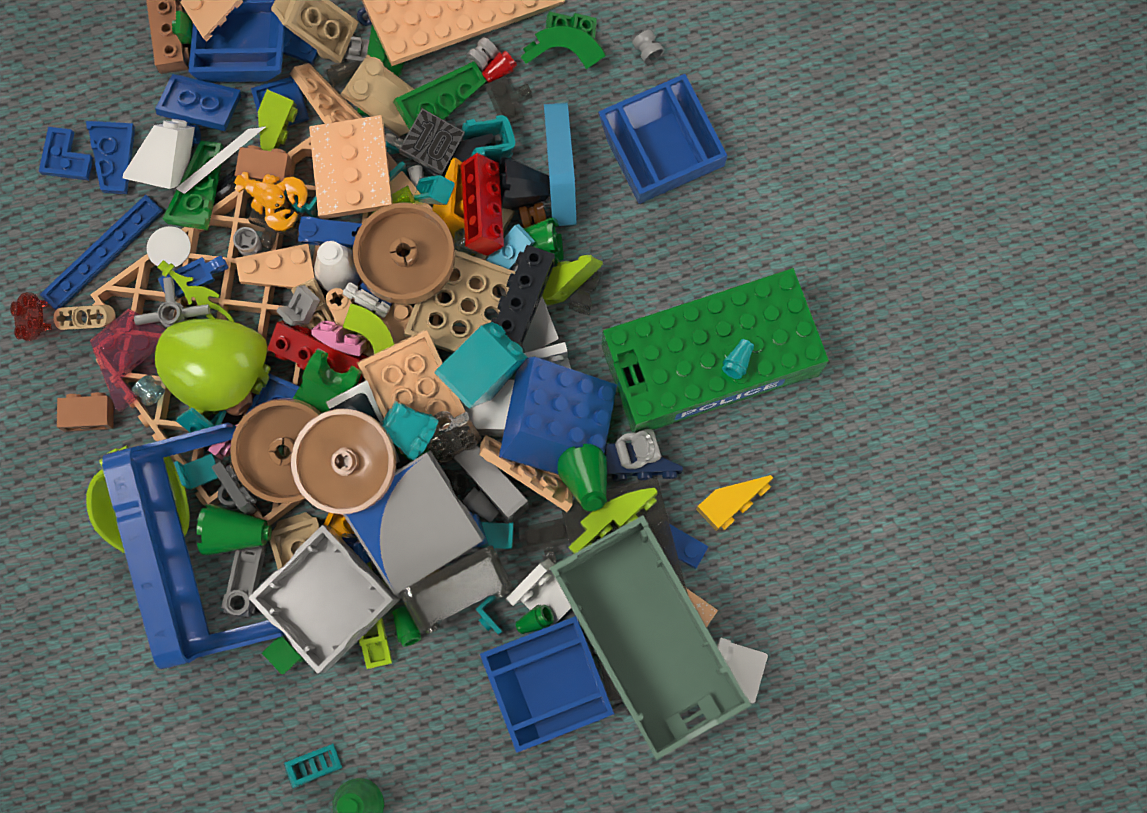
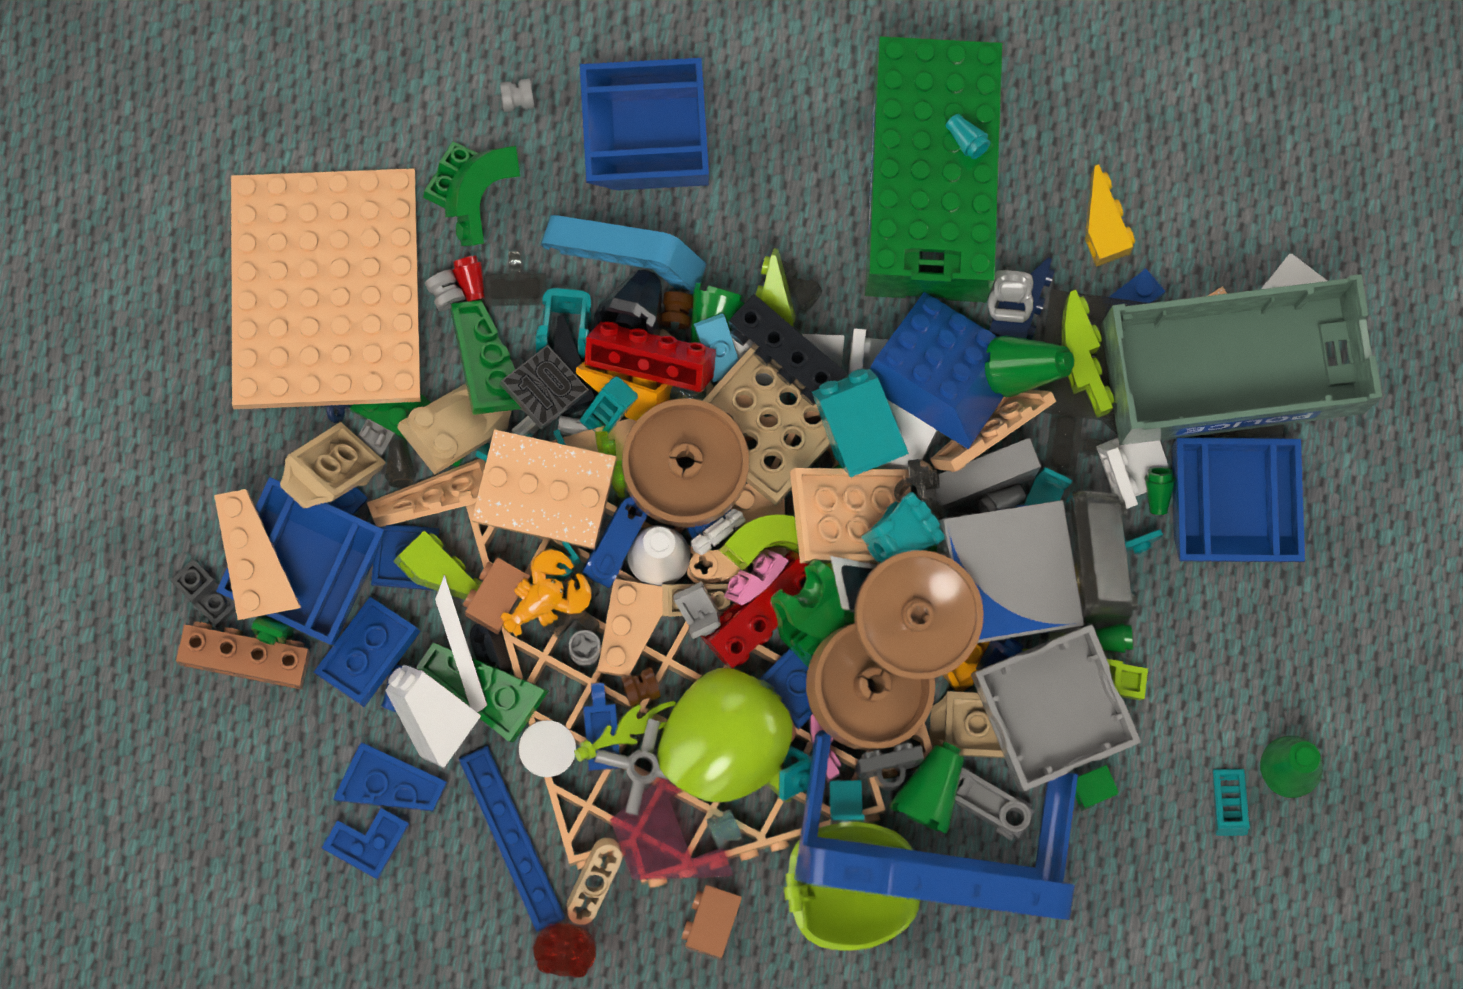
camera: 75 degrees left, 0 degrees up
(233, 292) = (641, 687): none -> reddish brown wheel

